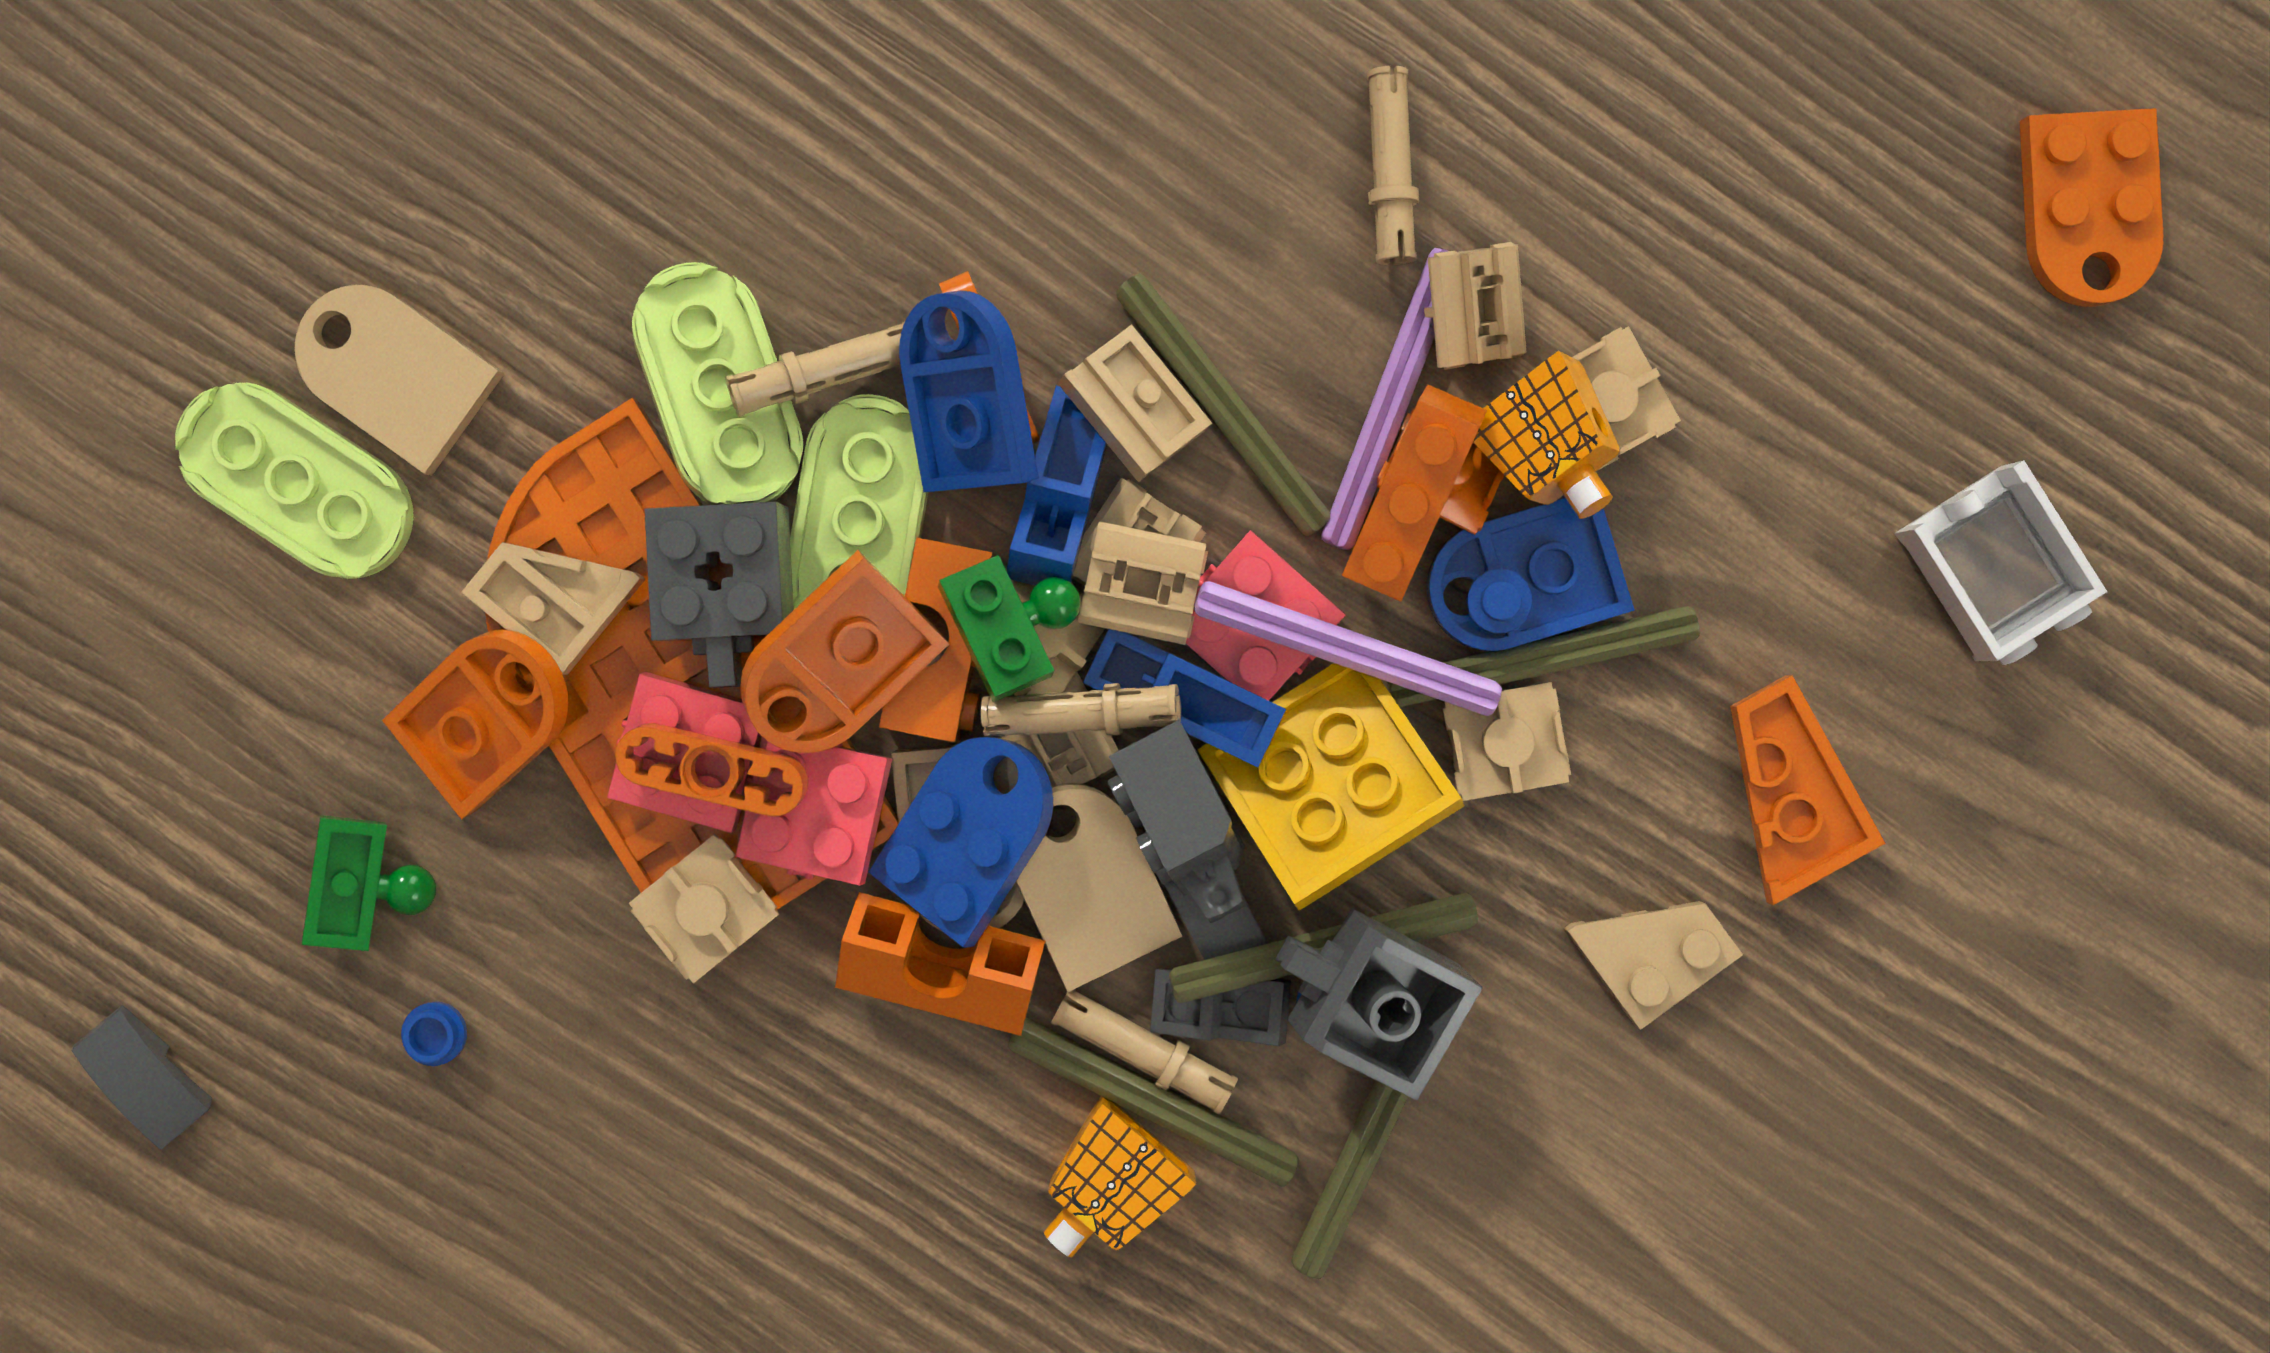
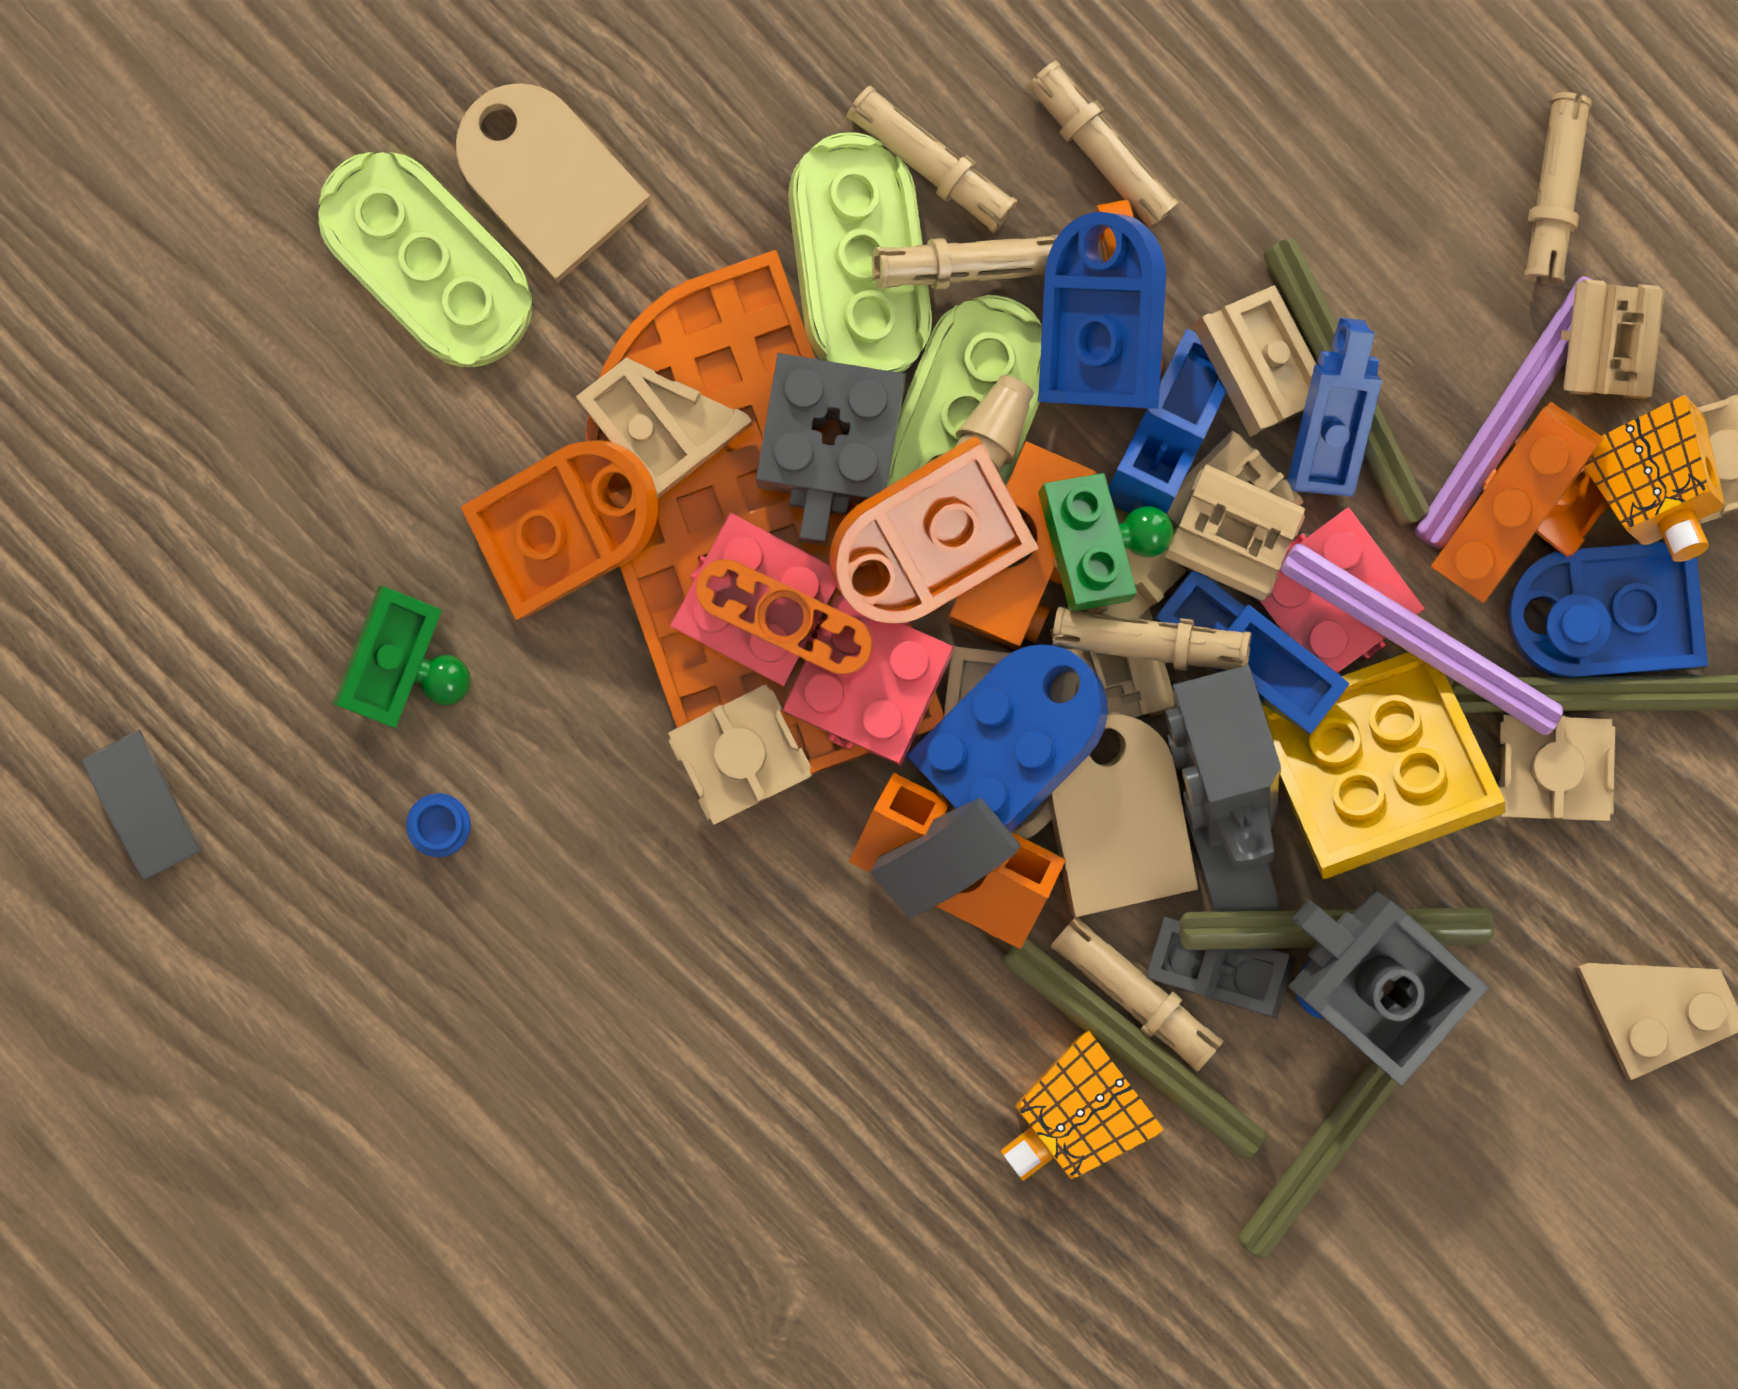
camera: 10 degrees right, 5 degrees down
(788, 282) = (952, 175): none -> tan pin
(886, 525) = (999, 419): none -> tan cone
(925, 973) = (946, 859): none -> dark grey slope
(932, 220) = (1102, 144): none -> tan pin
(1219, 441) = (1337, 414): none -> hinge

